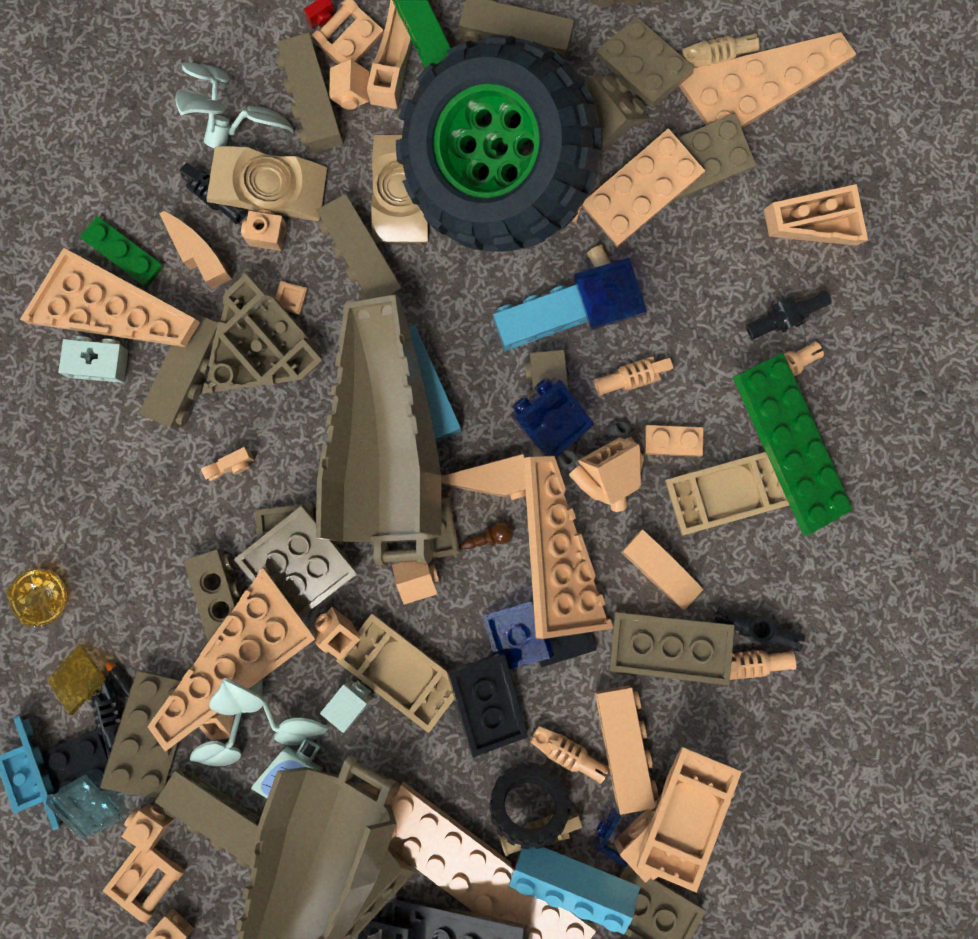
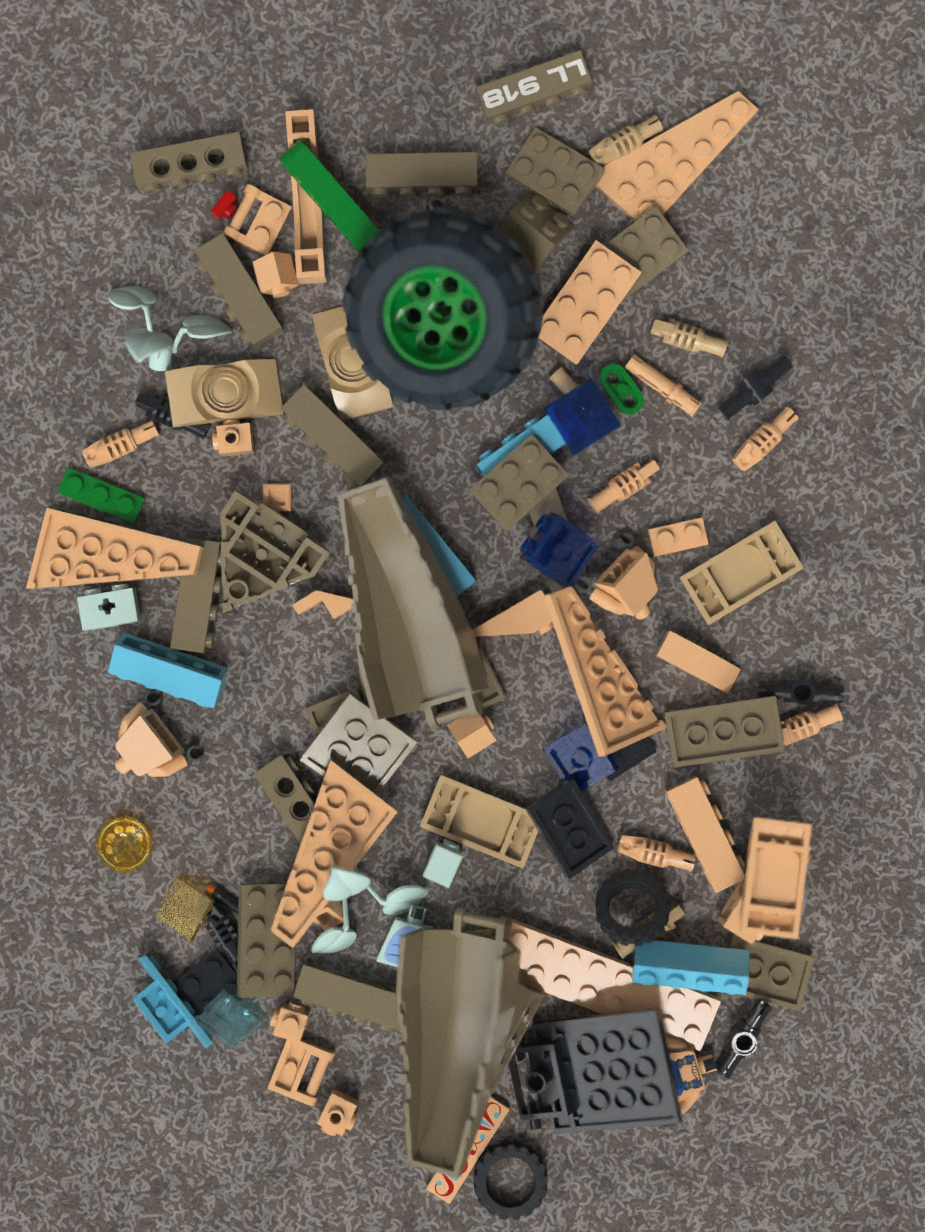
camera: 20 degrees left, 5 degrees up
(90, 503) = (148, 744): none -> light nougat torso
(131, 435) = (168, 670): none -> medium azure brick
(148, 207) = (118, 444): none -> light nougat hinge
(195, 251) = (174, 477): light nougat slope -> none
(234, 462) = (272, 669): light nougat plate -> none
(314, 414) = (335, 604): none -> light nougat slope
(335, 633) = (412, 802): light nougat brick -> none
(500, 533) = (539, 668): reddish brown bar -> none
(529, 342) = (518, 483): none -> dark tan plate
(603, 832) = (705, 912): clear blue bracket -> none
(654, 283) = (623, 388): none -> green plate
(701, 294) = (660, 383): none -> light nougat pin
(733, 249) = (688, 337): none -> tan hinge
(792, 443) = (788, 512): green plate -> none
(819, 217) = (761, 285): light nougat wedge -> none

